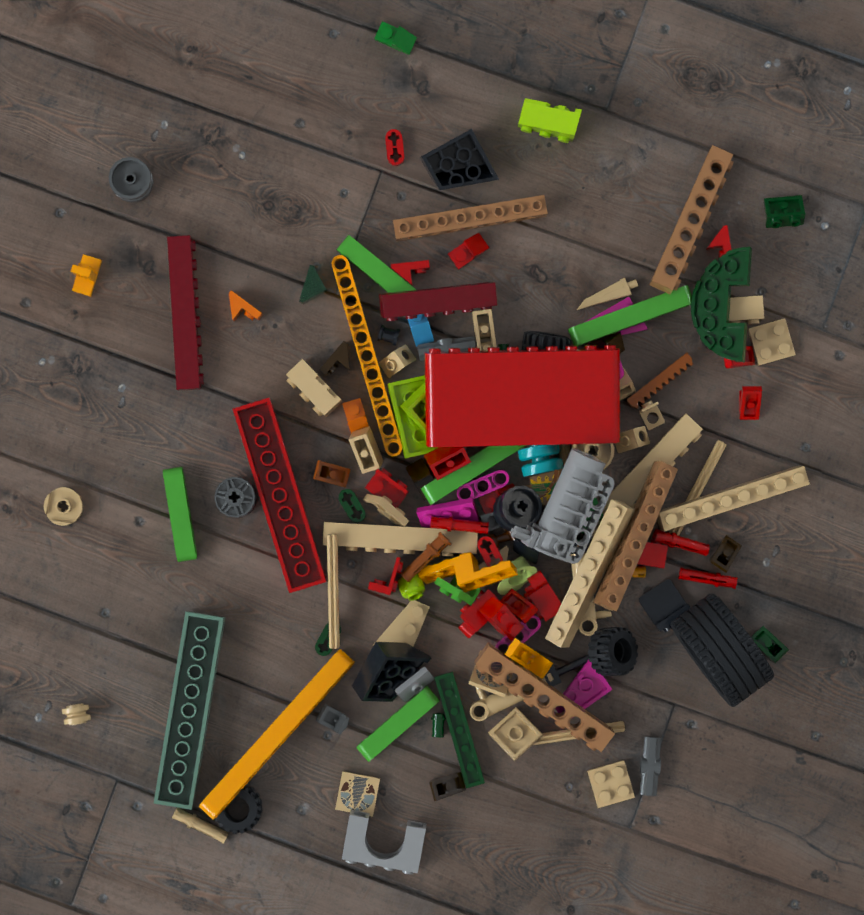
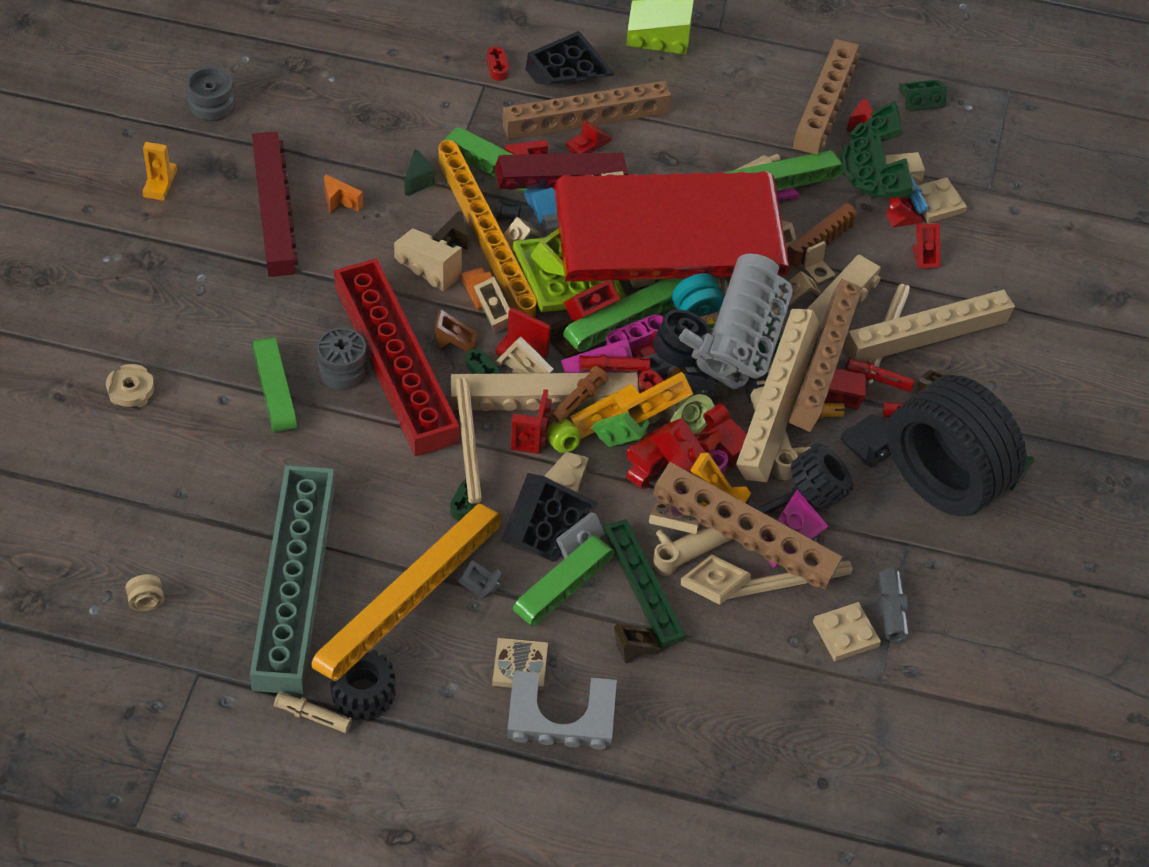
camera: 10 degrees left, 35 degrees down
(438, 725) = (615, 578): dark green pin -> none
(751, 348) = (917, 199): none -> dark azure axle

